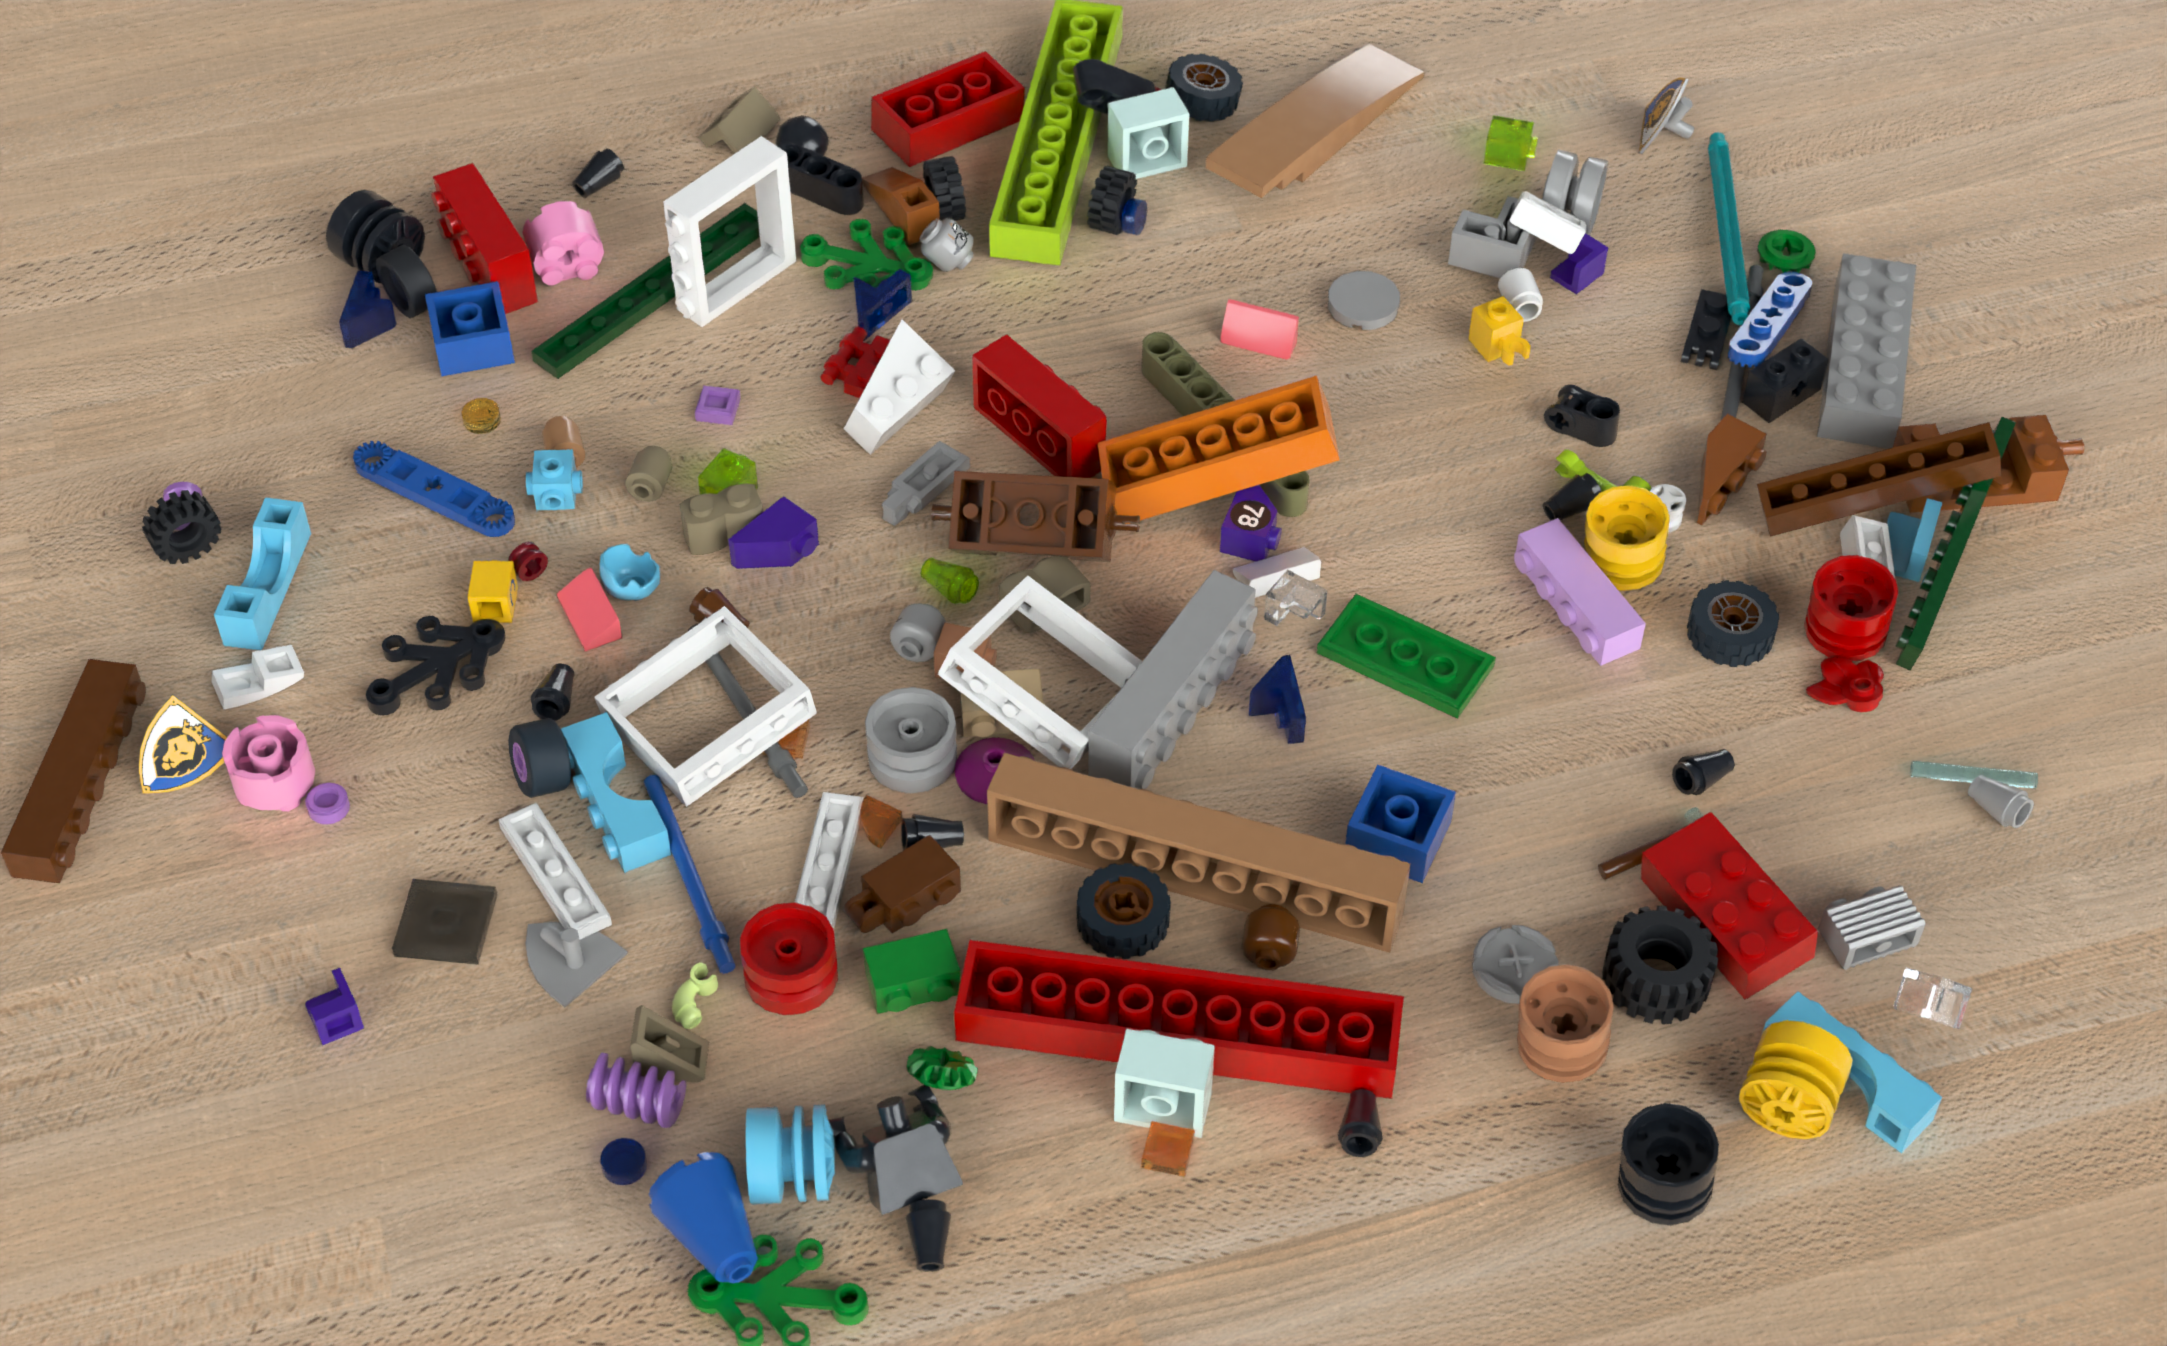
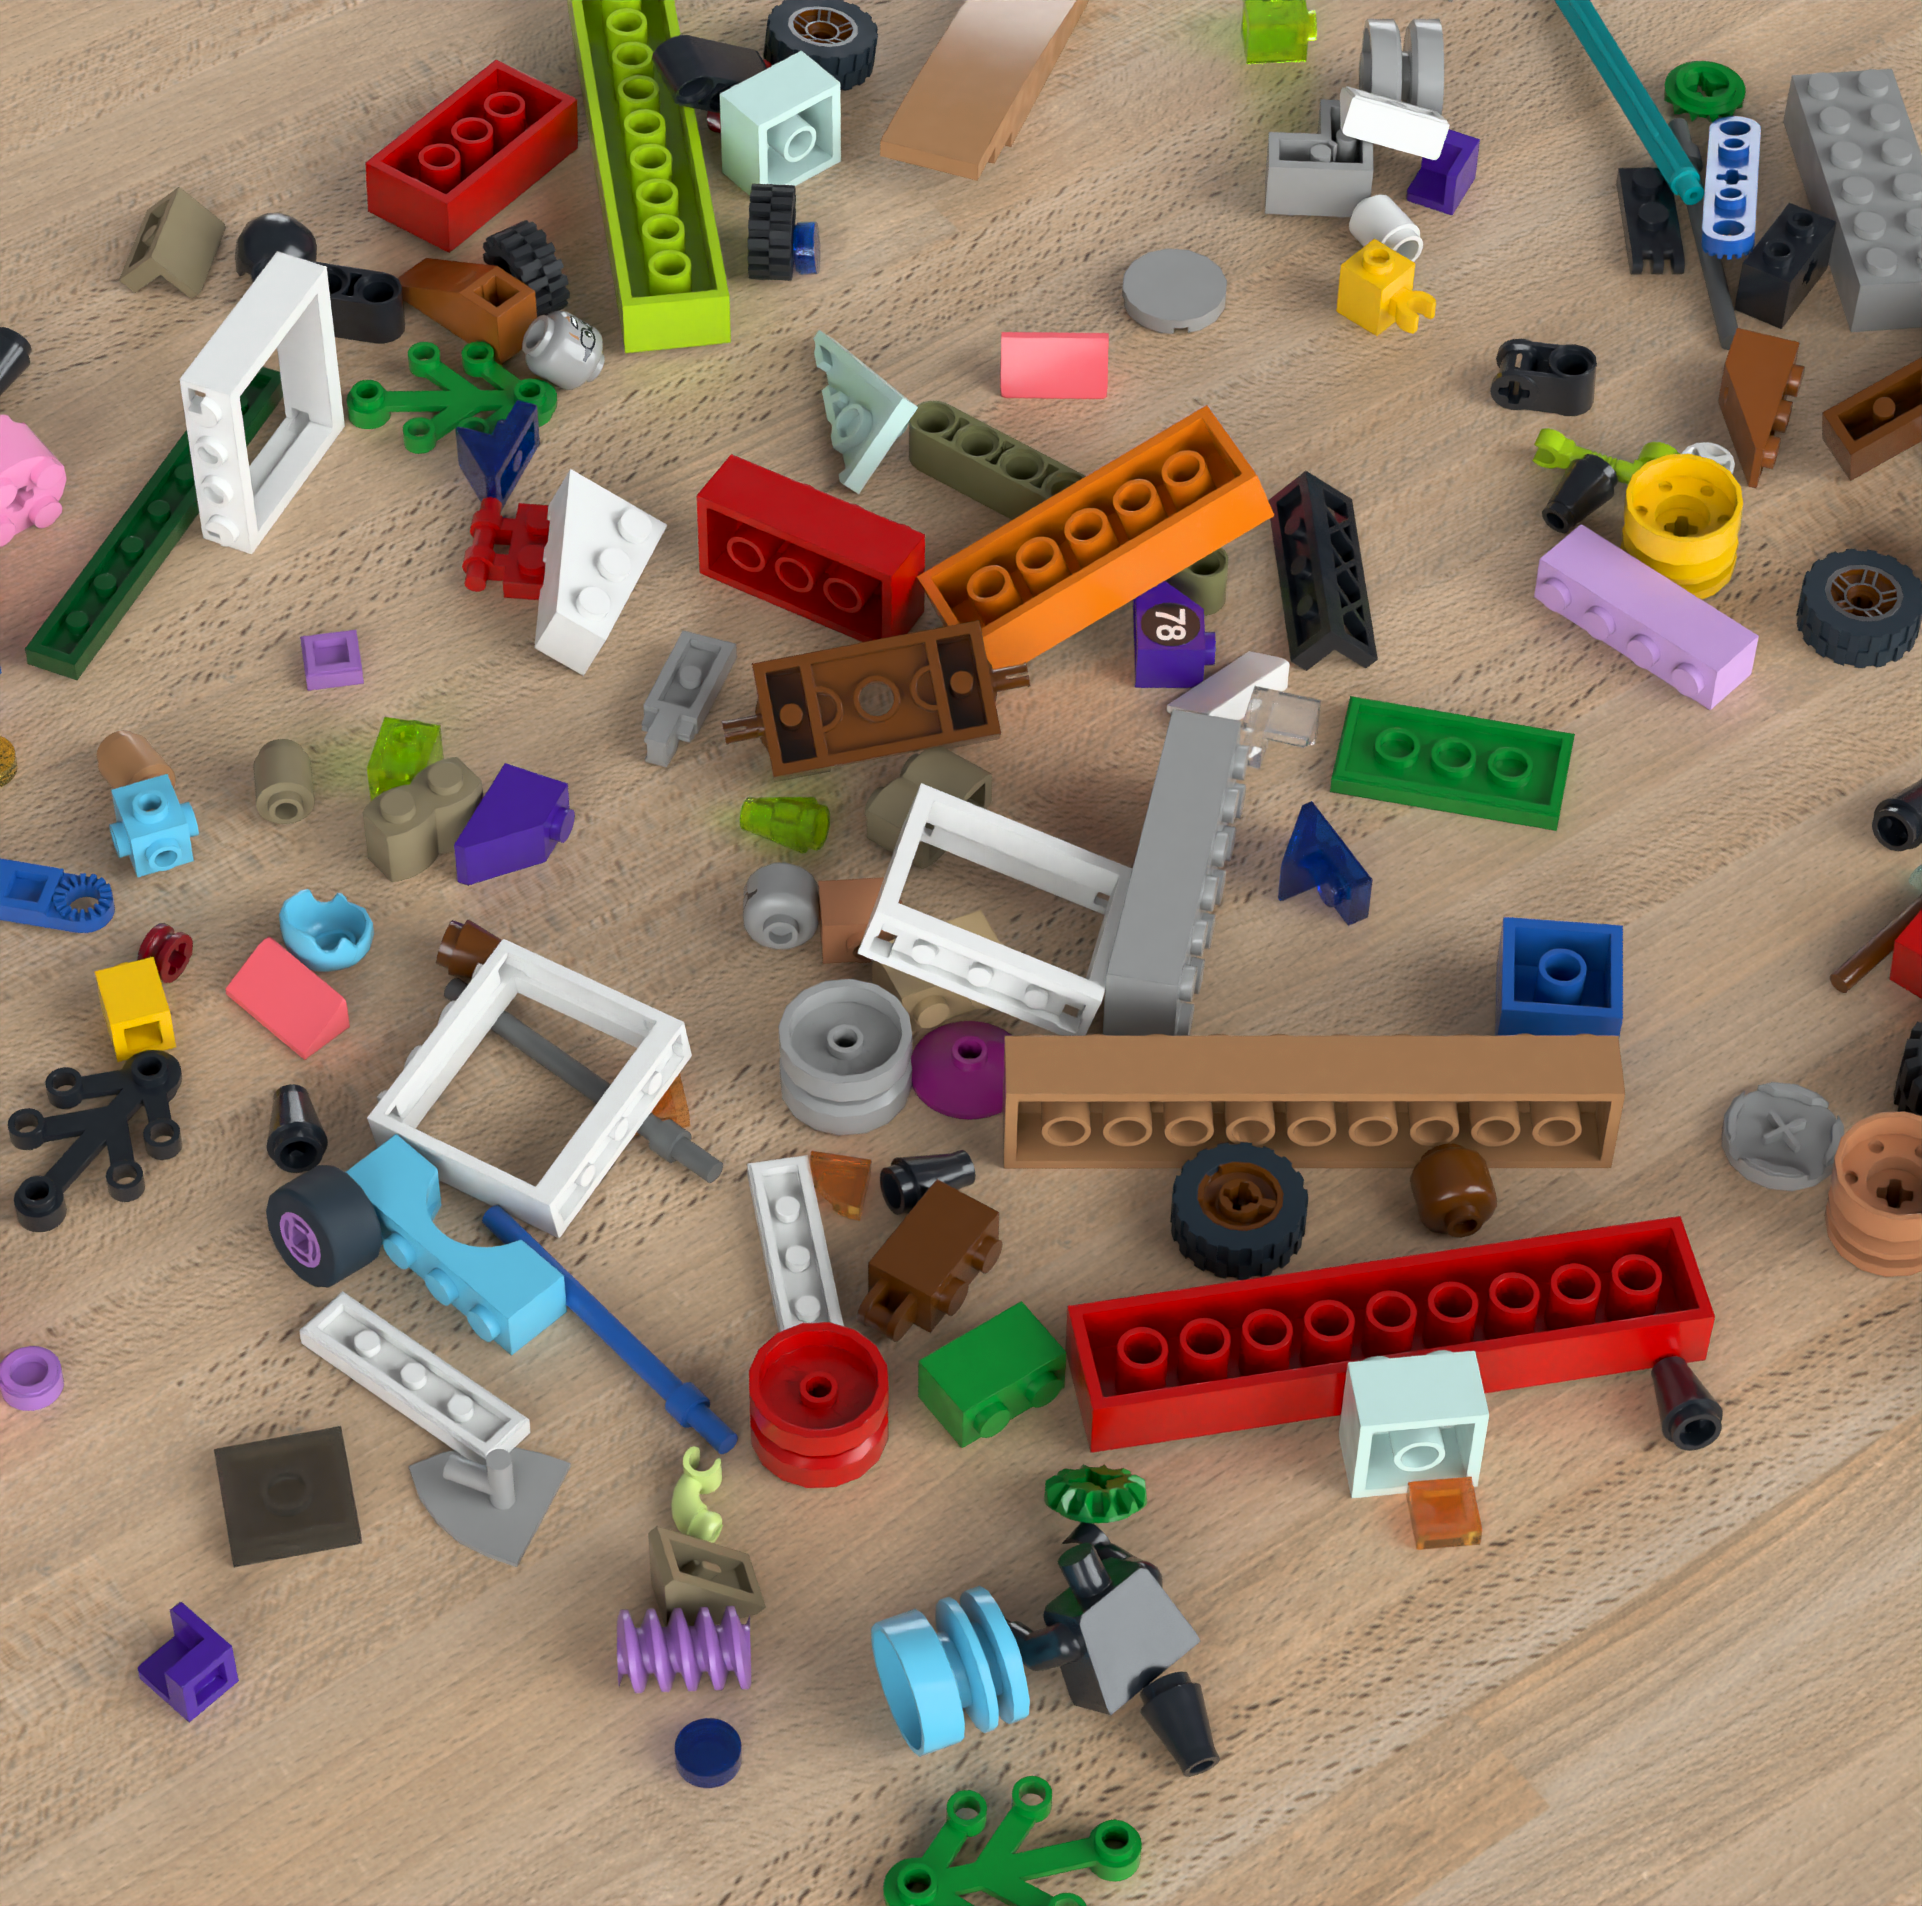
camera: 20 degrees left, 0 degrees up
(707, 1215) = (880, 1789): blue cone -> none
(1119, 329) = (862, 411): none -> light aqua wing
(1367, 500) = (1313, 569): none -> black fence

